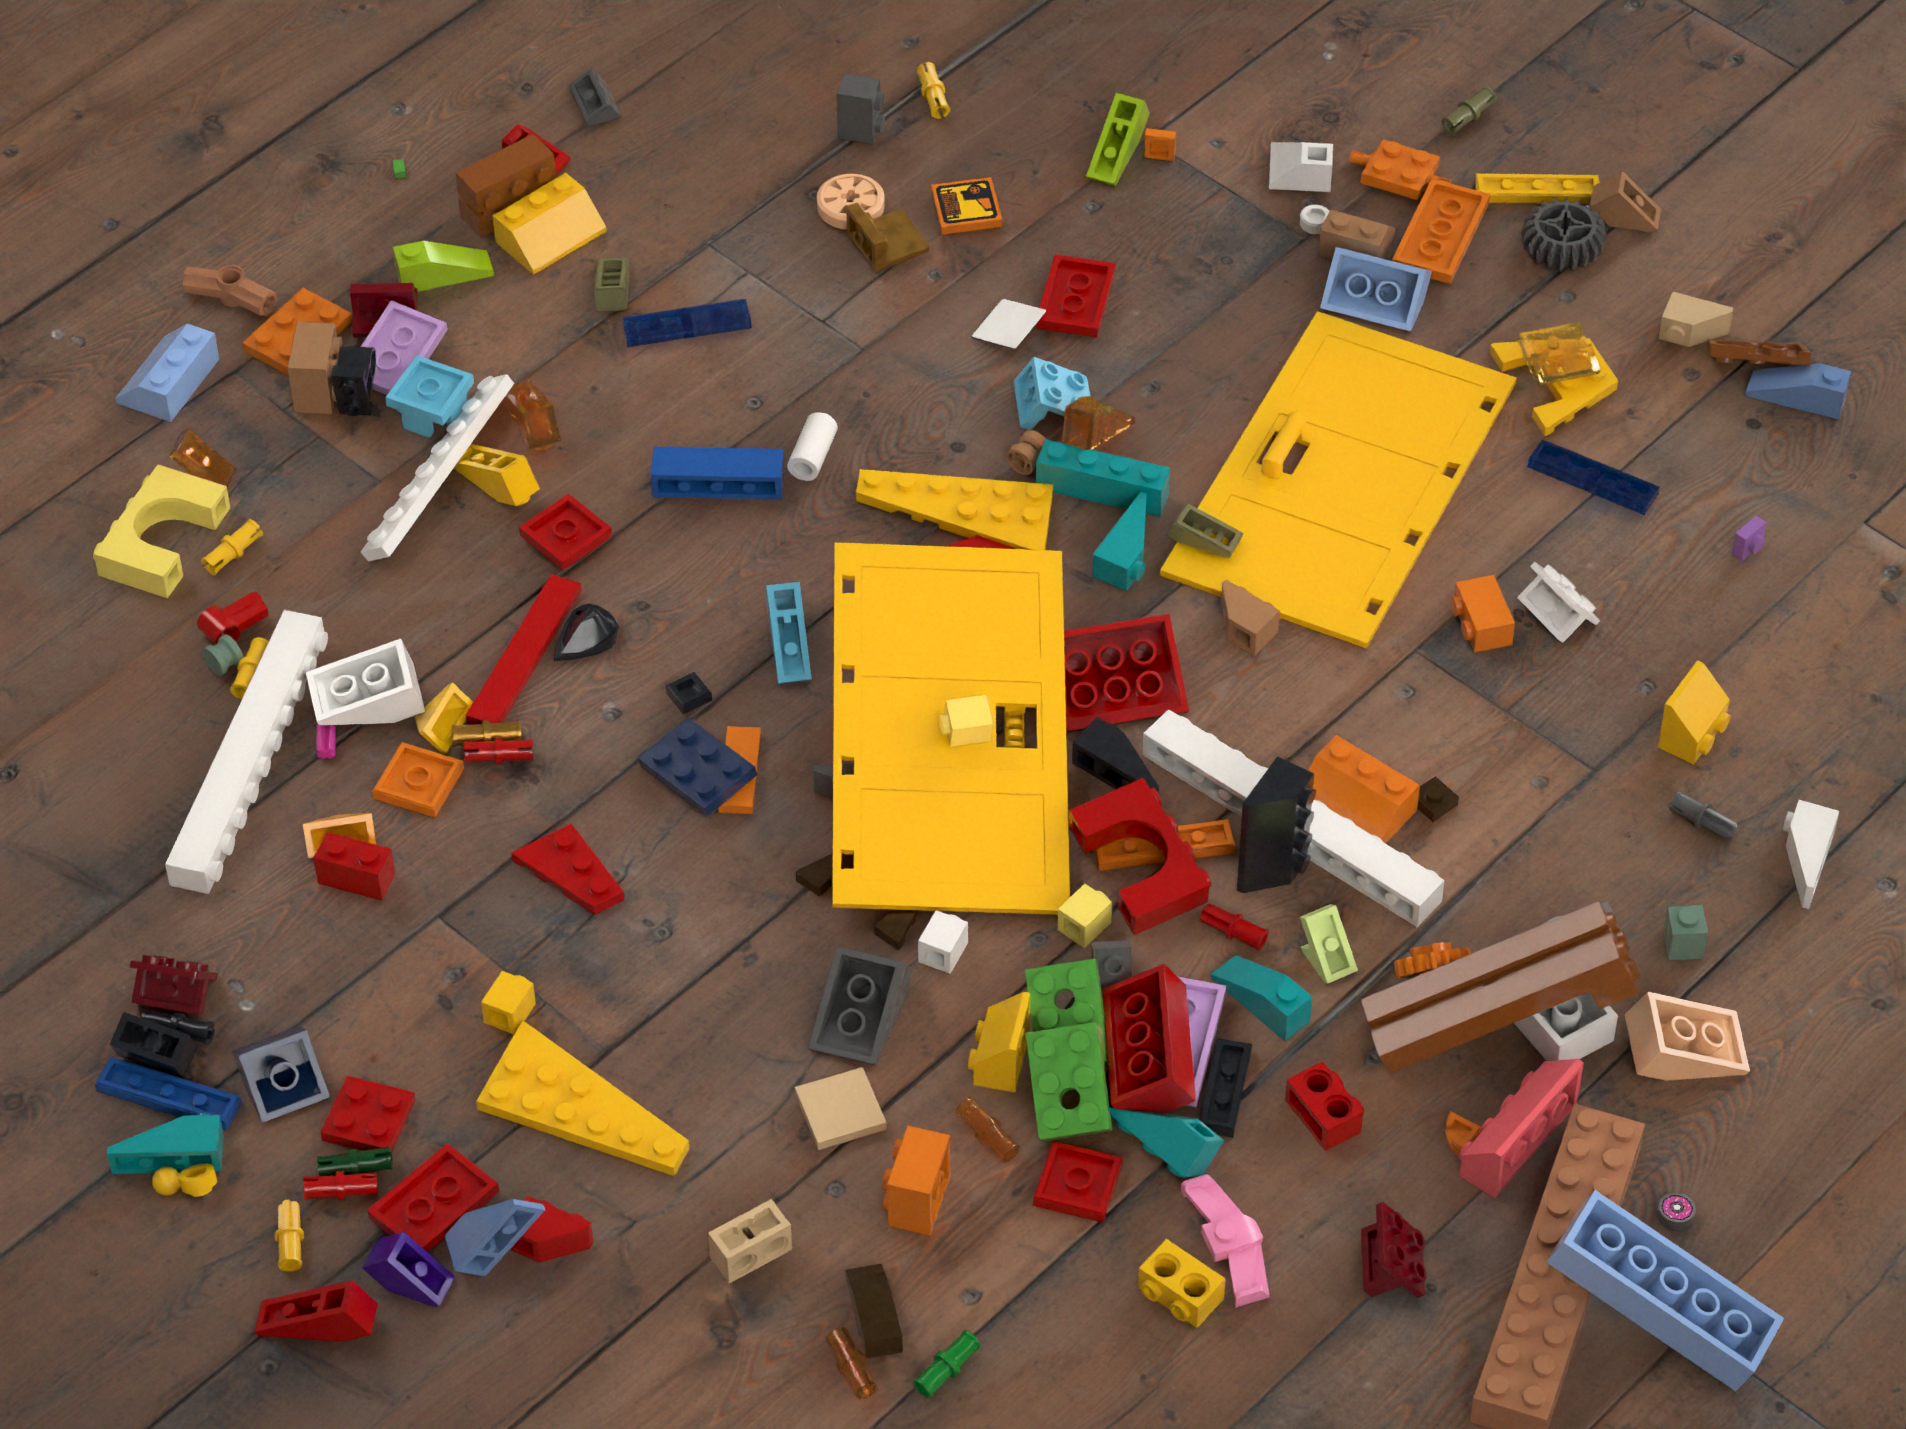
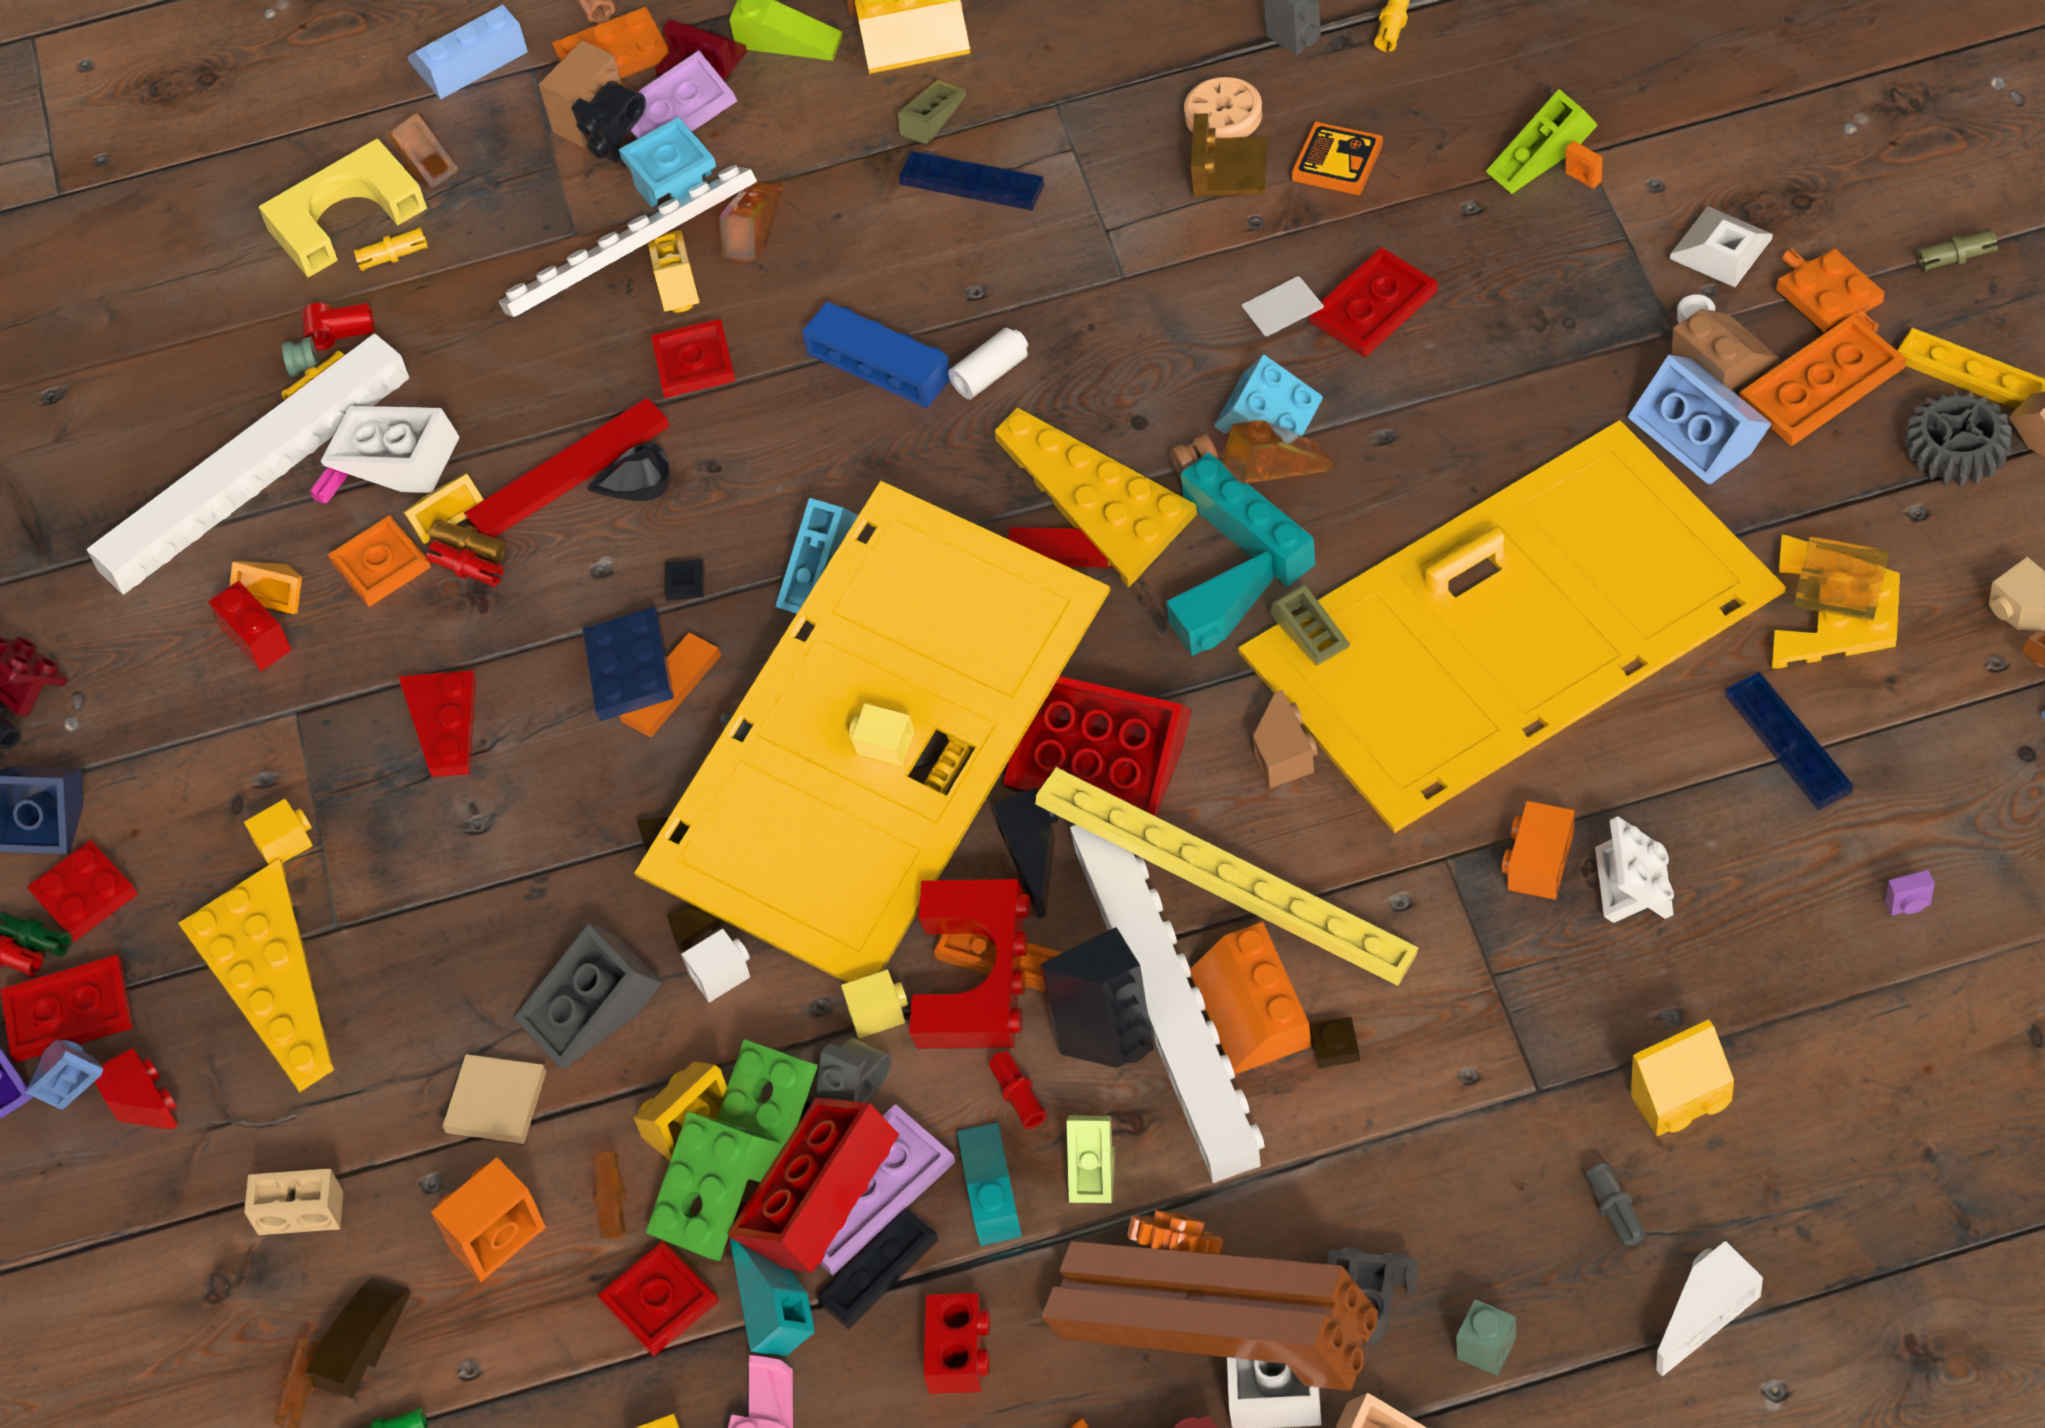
camera: 40 degrees right, 5 degrees up
(1281, 717) = (1227, 876): none -> light yellow plate

